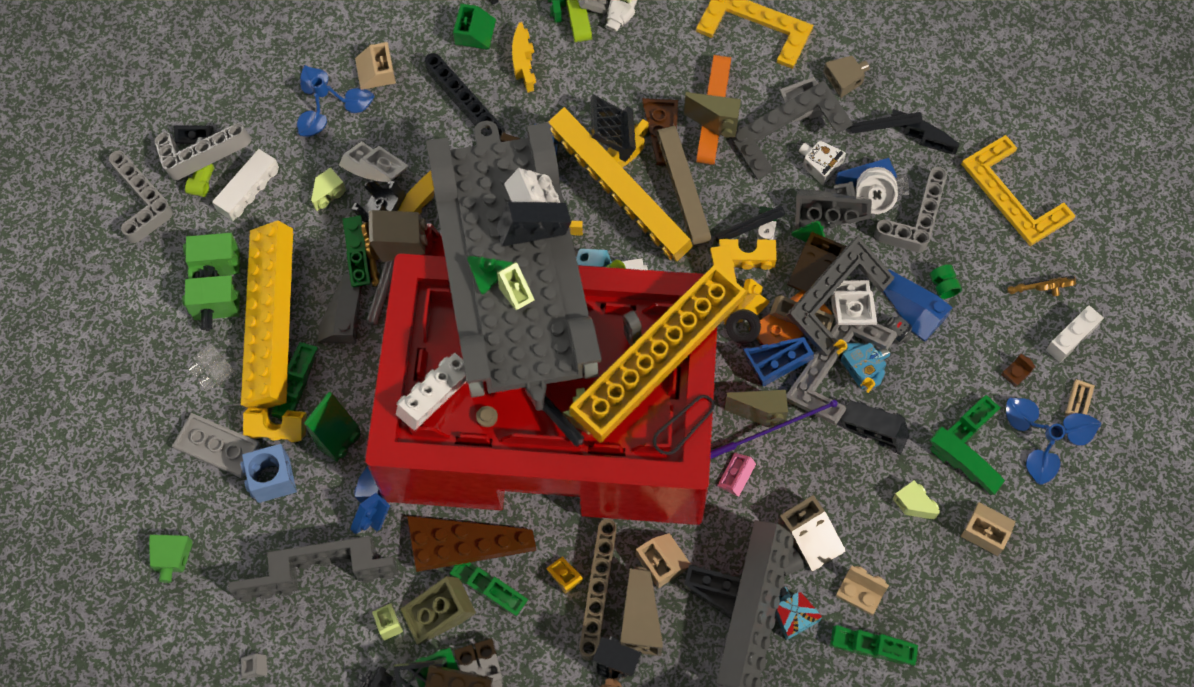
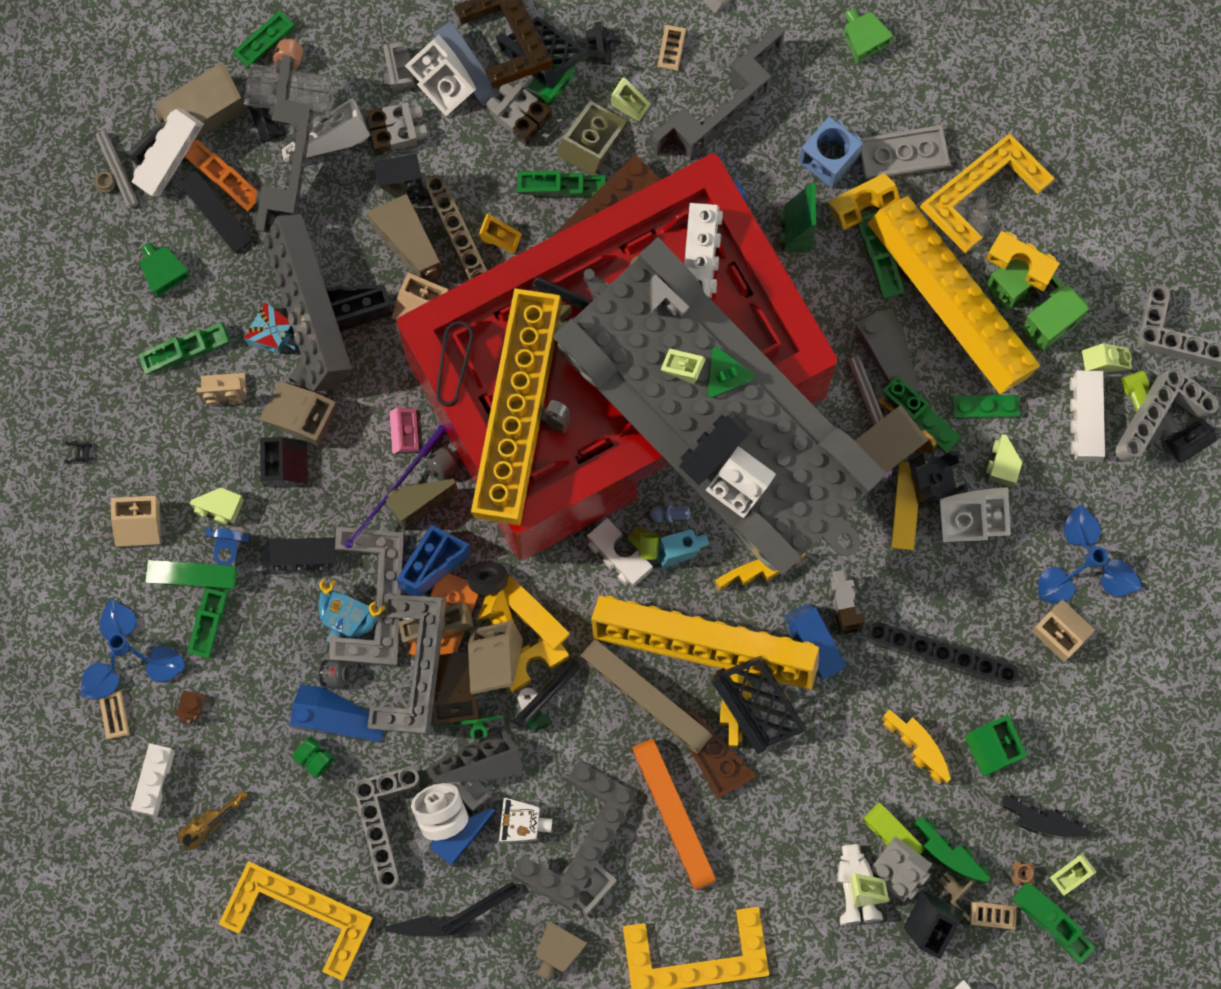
camera: 145 degrees right, 10 degrees up
(202, 212) = (1107, 358): none -> yellowish green slope
(207, 304) = (1040, 266): none -> yellow arch
(226, 375) = (942, 203): none -> yellow plate
(310, 236) = (986, 406): none -> green plate
(320, 657) = (675, 31): none -> tan slope
(496, 342) = (662, 293): none -> light grey slope
(713, 112) = (658, 786): olive slope -> none
(724, 427) = (442, 463): none -> dark grey head
(776, 261) = (493, 656): none -> dark tan slope
(847, 502) = (283, 462): none -> black slope
(854, 303) = (388, 665): white slope -> none
(924, 469) = (226, 539): none -> blue tile
(1005, 622) = (87, 446): none -> black piece

